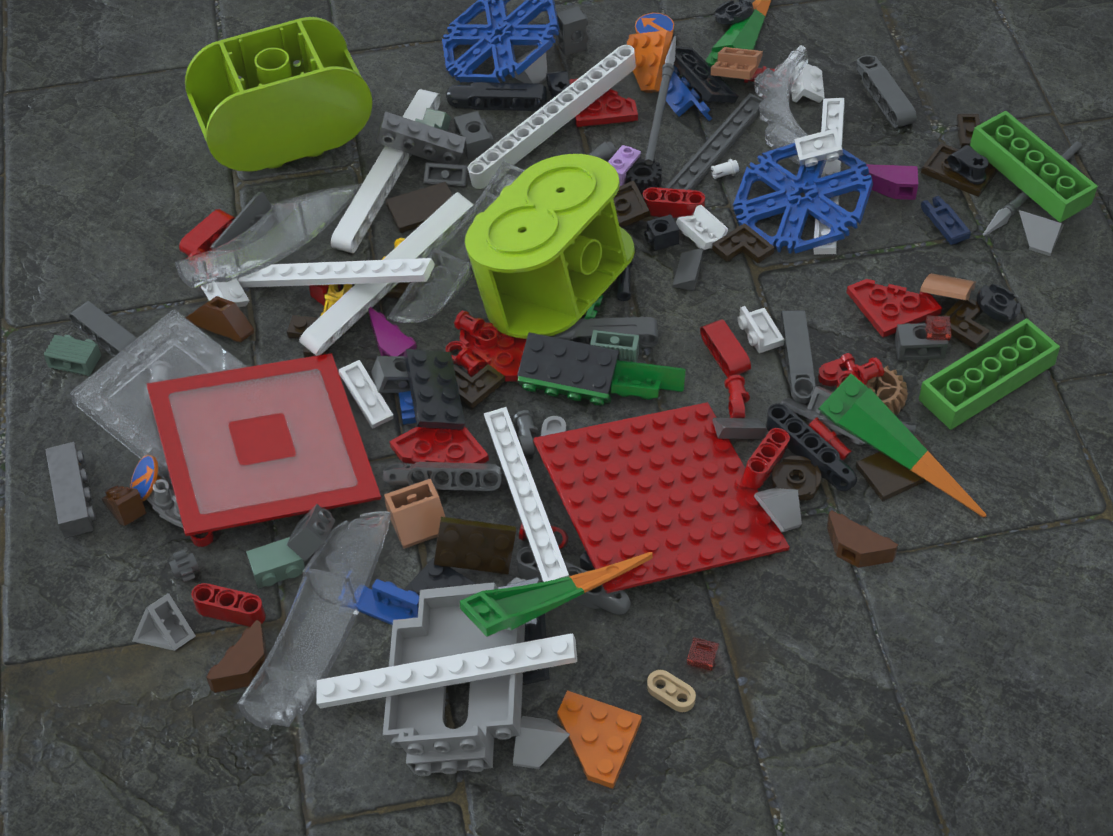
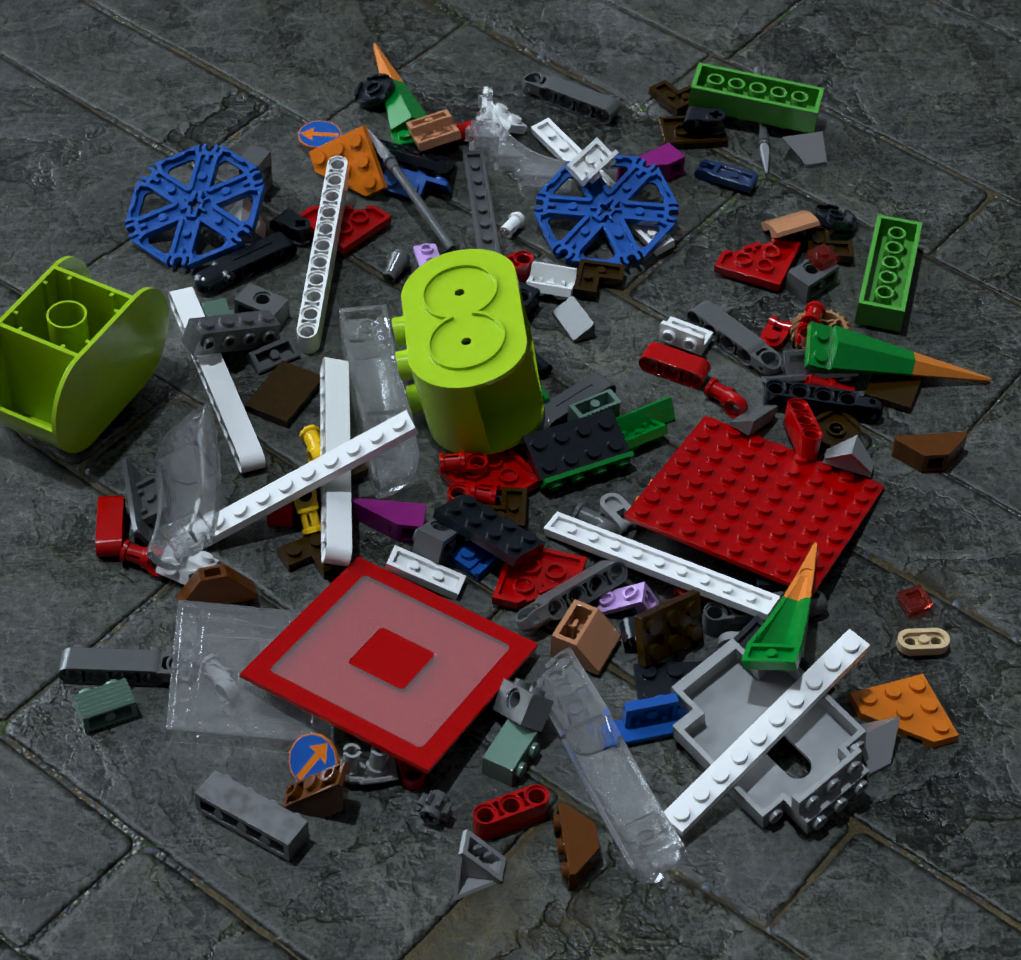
camera: 45 degrees left, 5 degrees down
(484, 506) = (628, 597): none -> lavender bracket

